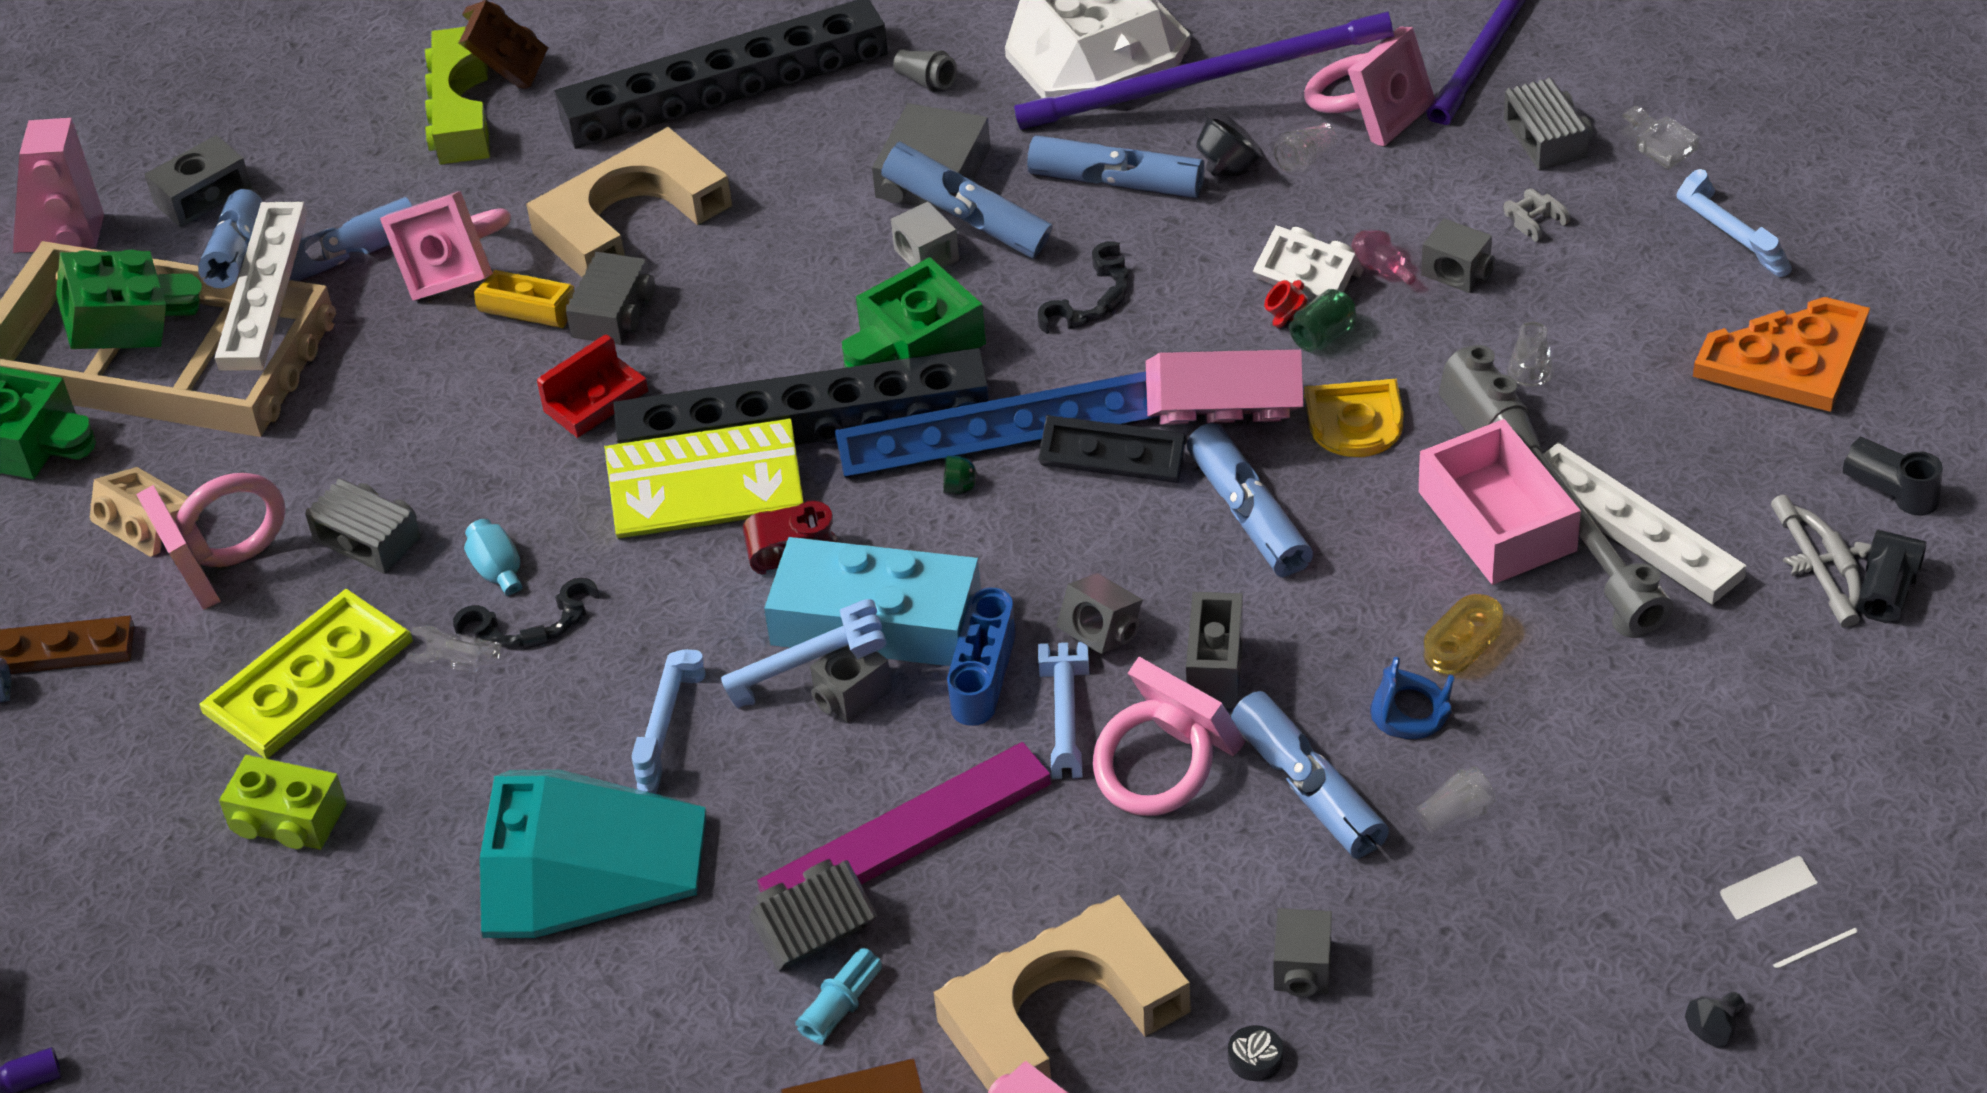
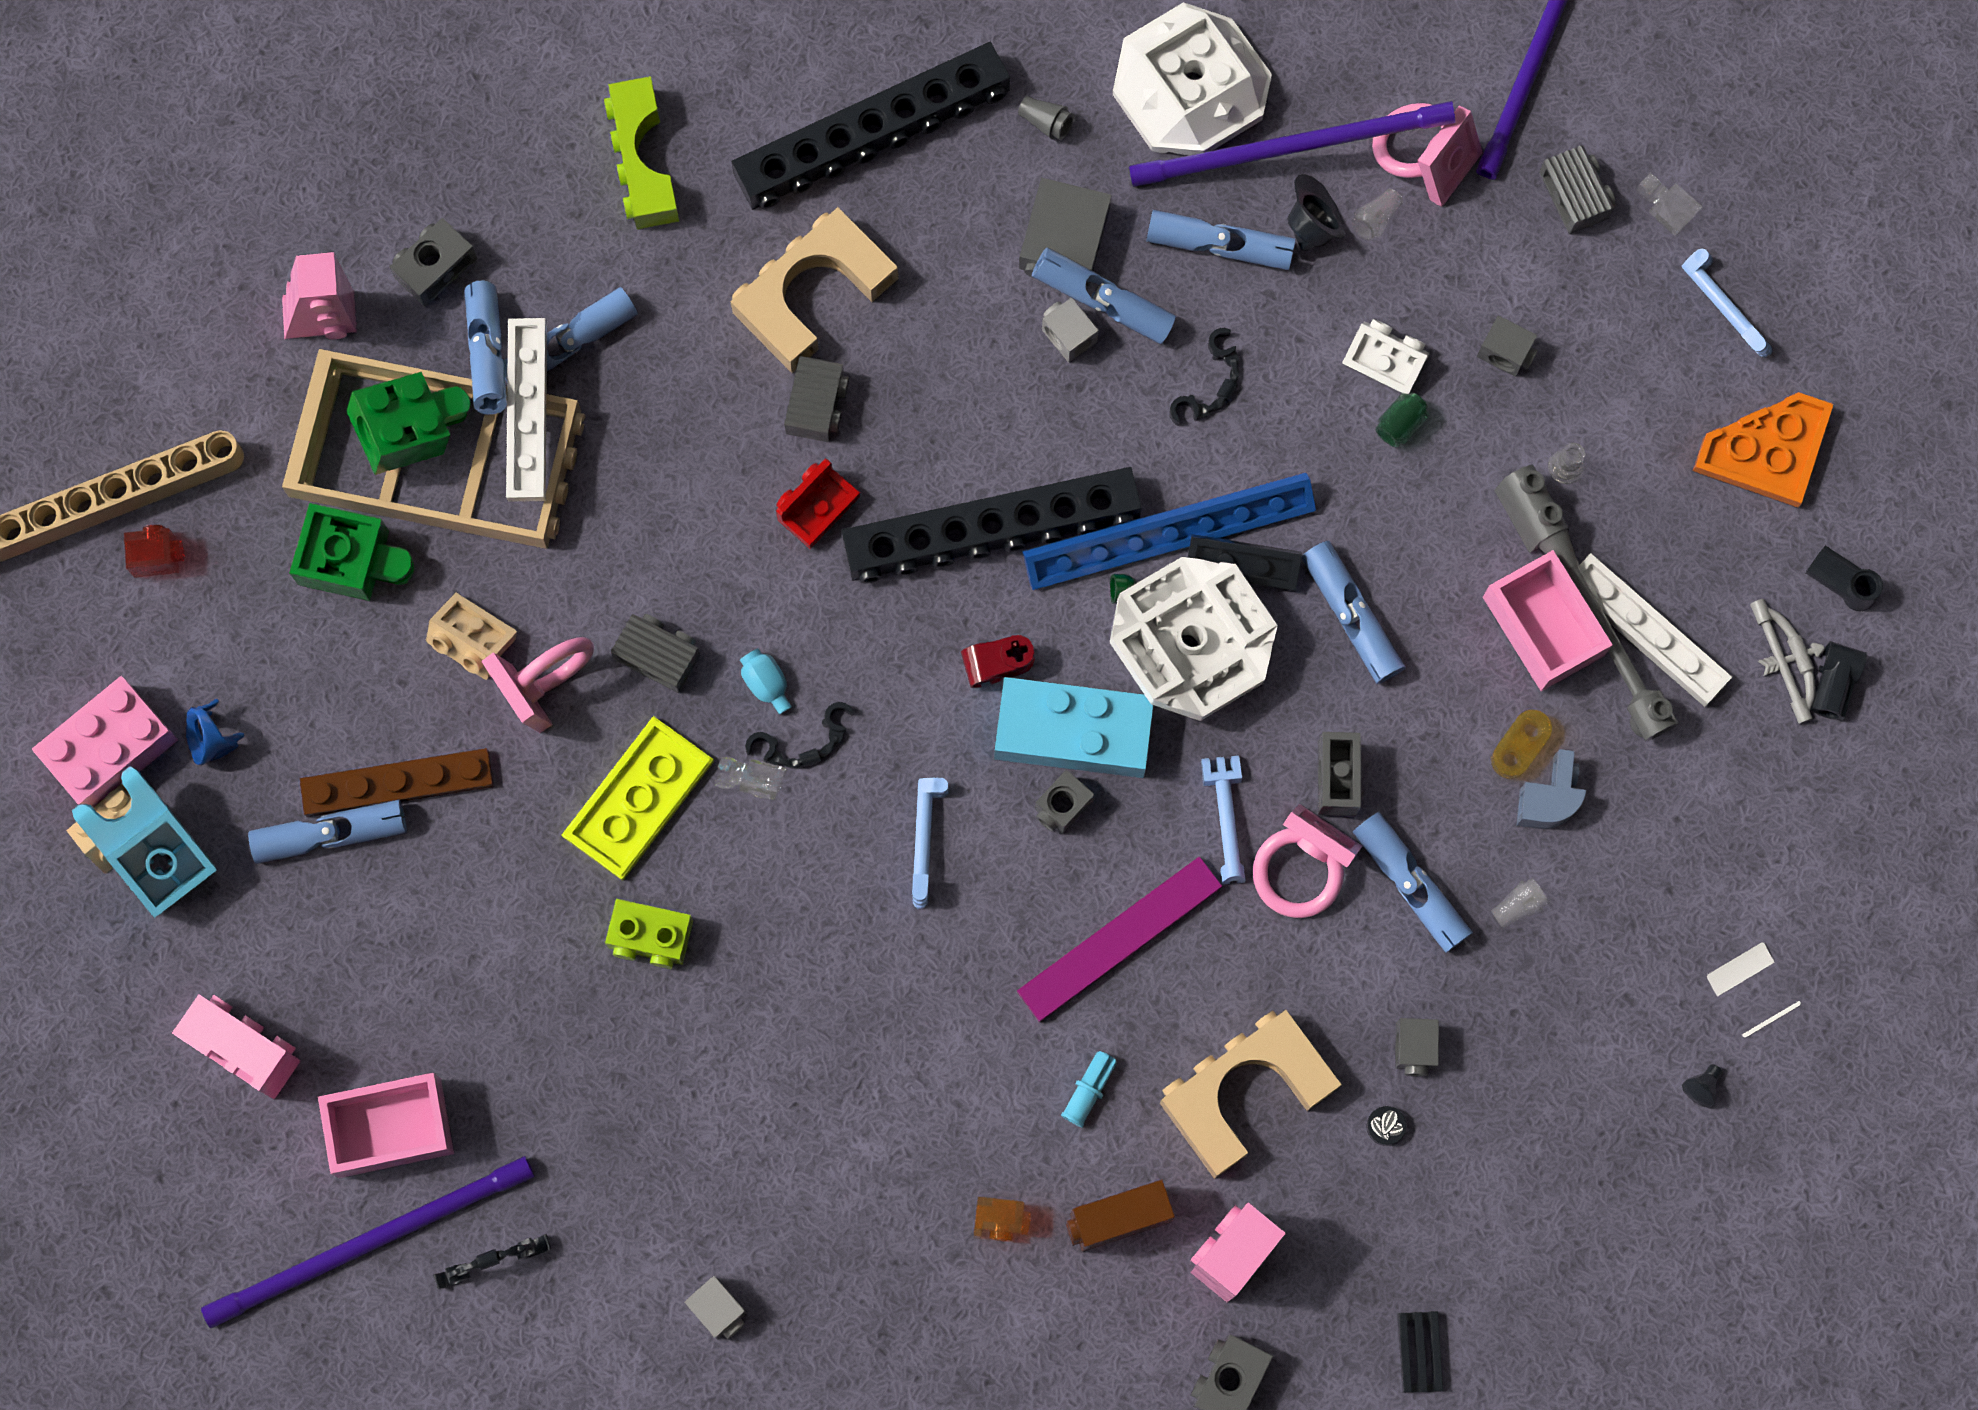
camera: 10 degrees left, 30 degrees up
(441, 243) = (670, 357): bright pink tile -> none
(502, 43) = (675, 102): reddish brown bracket -> none
(524, 298) = (743, 399): yellow brick -> none
(581, 852) = (885, 966): teal wedge -> none
(702, 478) = (923, 602): neon yellow tile -> none
(812, 913) = (1063, 1027): dark grey brick -> none
(859, 631) = (981, 807): light blue hinge -> none
(914, 317) = (1075, 439): green brick -> none
(976, 673) = (1172, 773): blue beam -> none
(1038, 502) = (1218, 611): none -> white piece
(1099, 613) = (1249, 737): dark grey brick -> none
(1224, 385) = (1332, 512): bright pink piece -> none
(1285, 301) = (1371, 398): red plate -> none
(1355, 416) = (1430, 517): yellow tile -> none
(1378, 254) = (1444, 342): clear pink piece -> none
(1392, 720) = (1466, 811): blue piece -> none
(1501, 693) = (1553, 804): none -> sand blue brick
(1543, 205) = (1575, 282): light grey piece -> none

